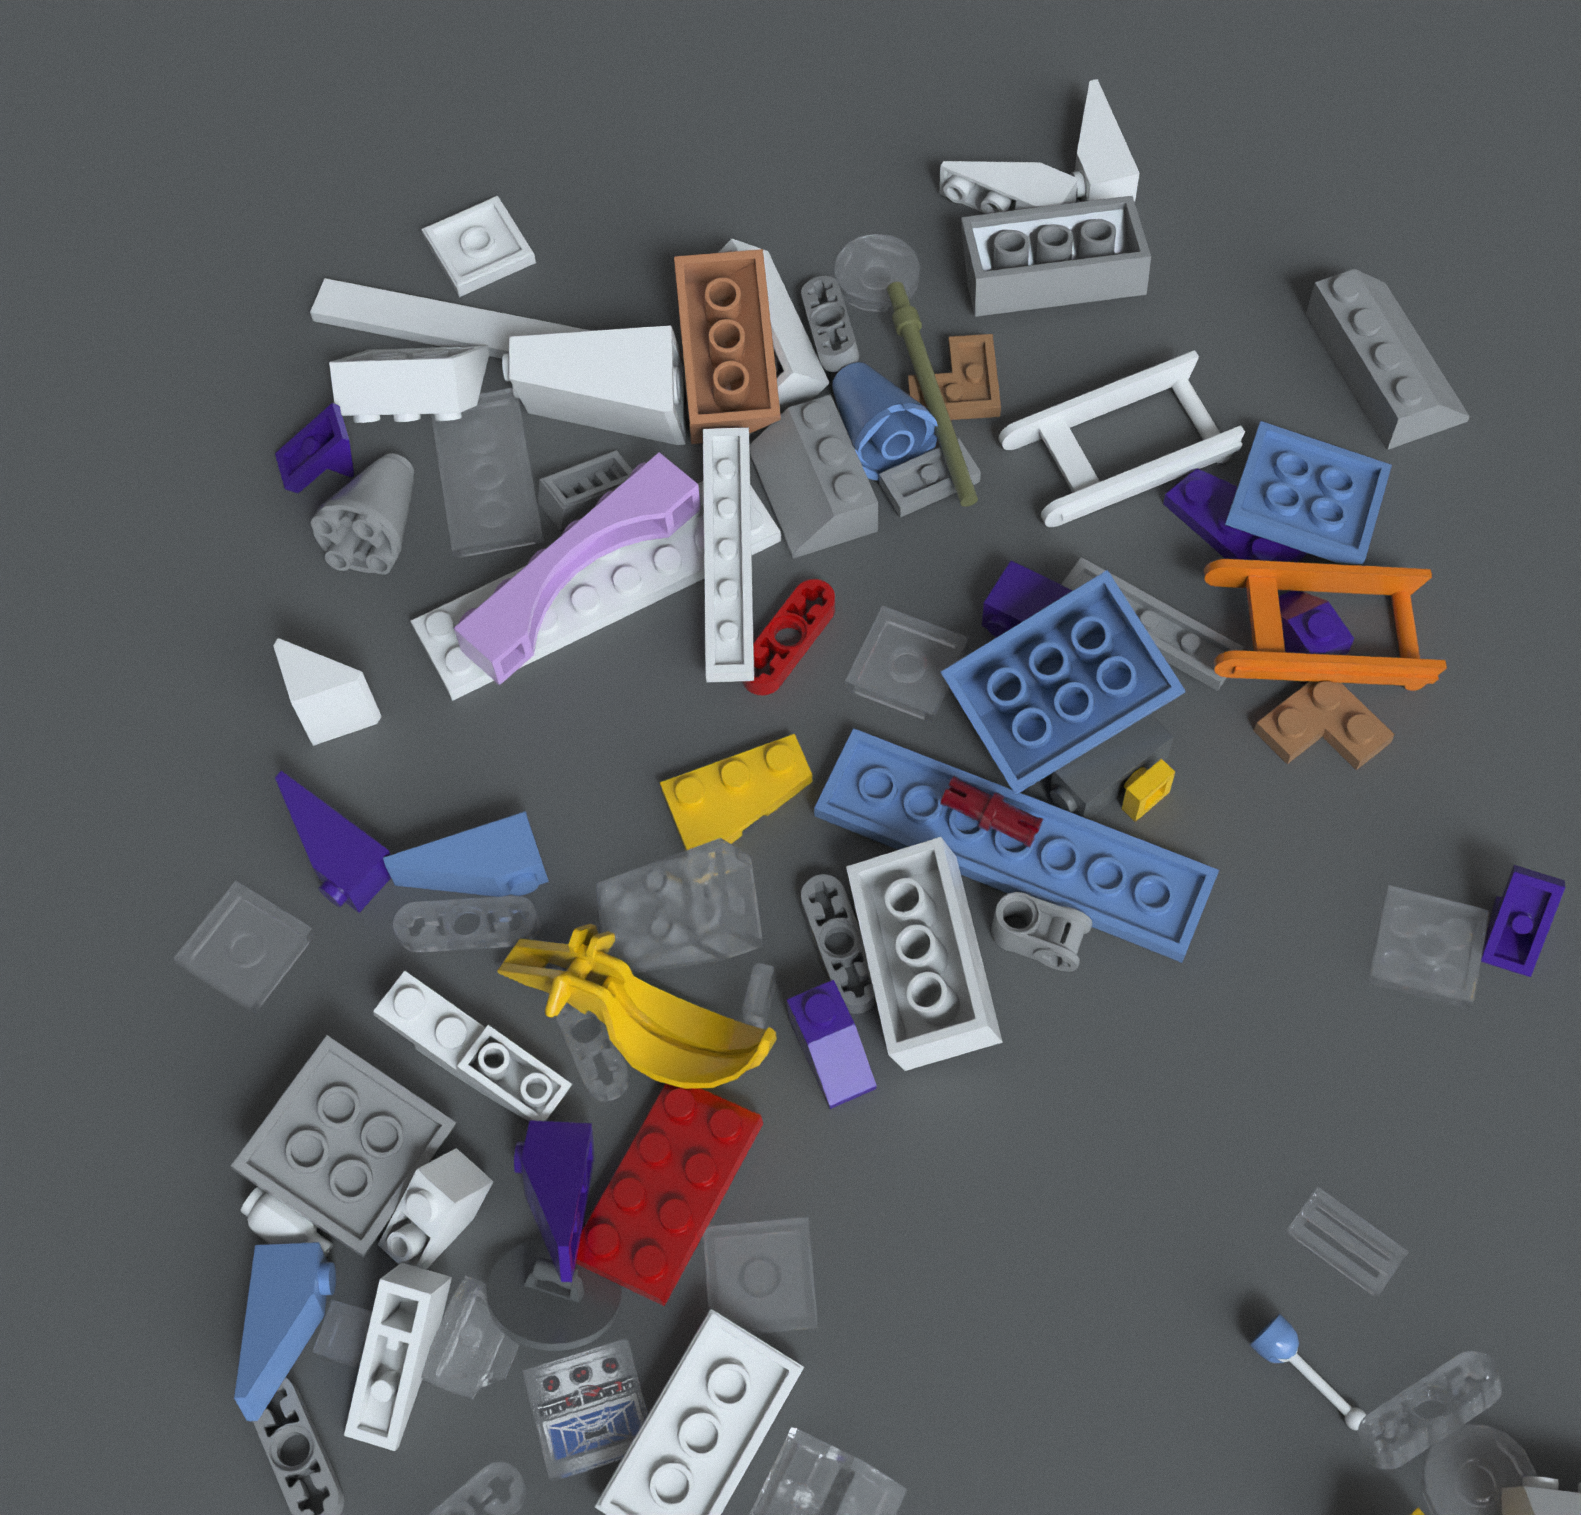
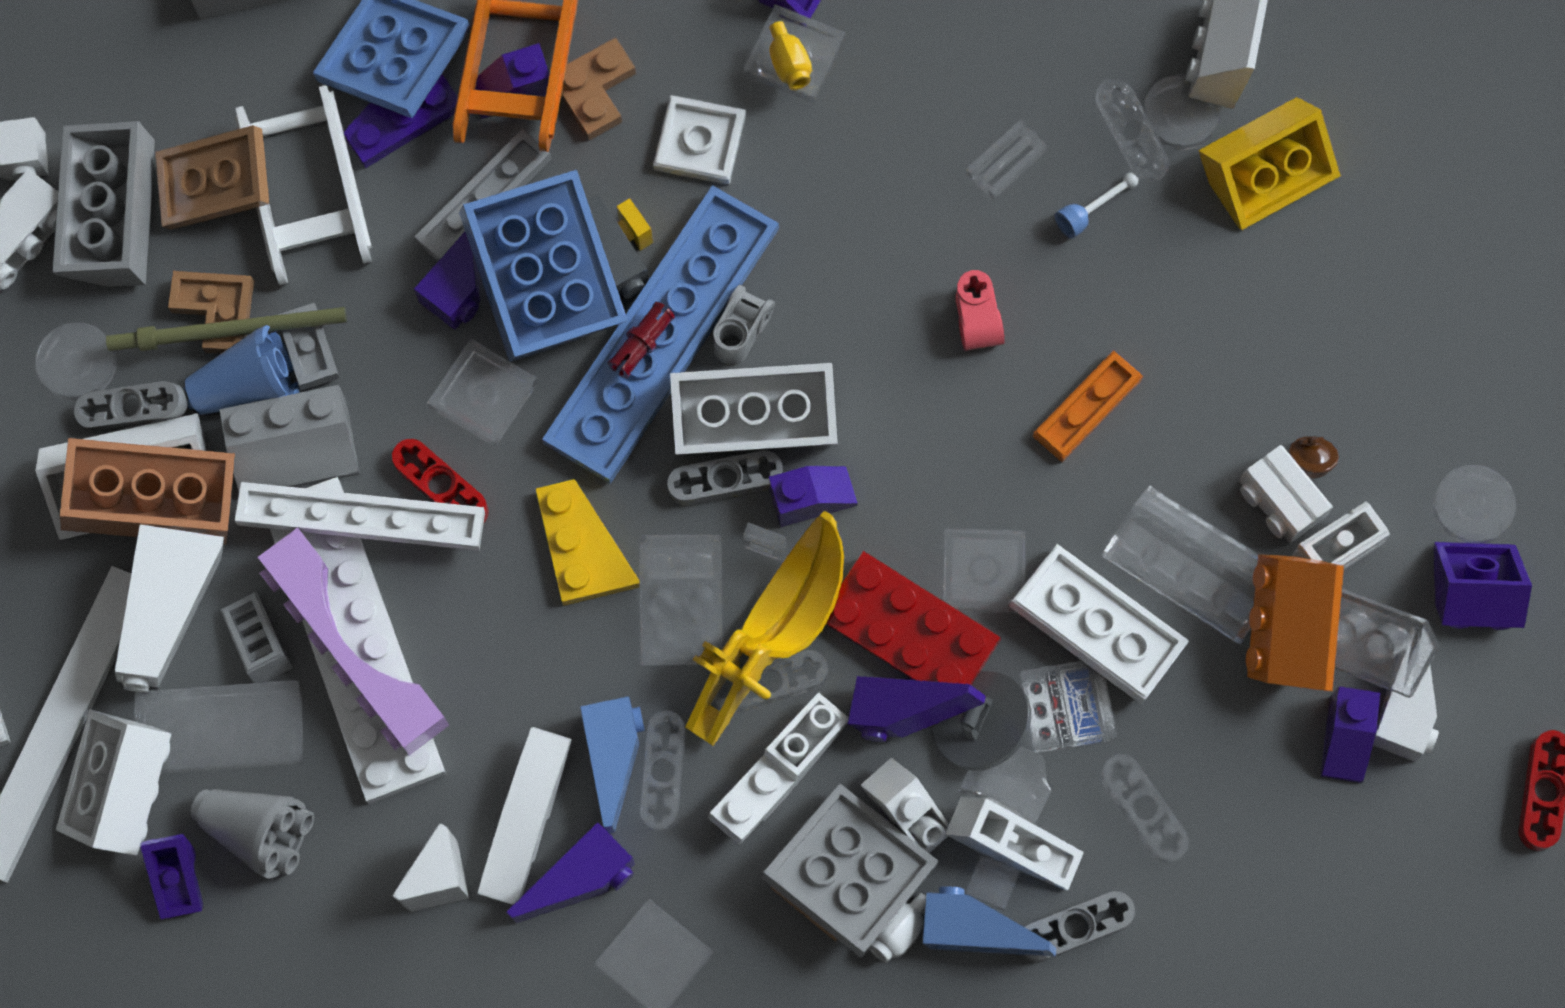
camera: 85 degrees left, 10 degrees up
(403, 778) = (524, 816): none -> white slope
(1010, 1393) = (1087, 406): none -> orange tile
(1102, 1225) = (978, 317): none -> coral piece
(1107, 345) = (212, 177): none -> medium nougat plate
(1283, 853) = (699, 140): none -> white tile
(1412, 931) = (789, 58): none -> yellow plant

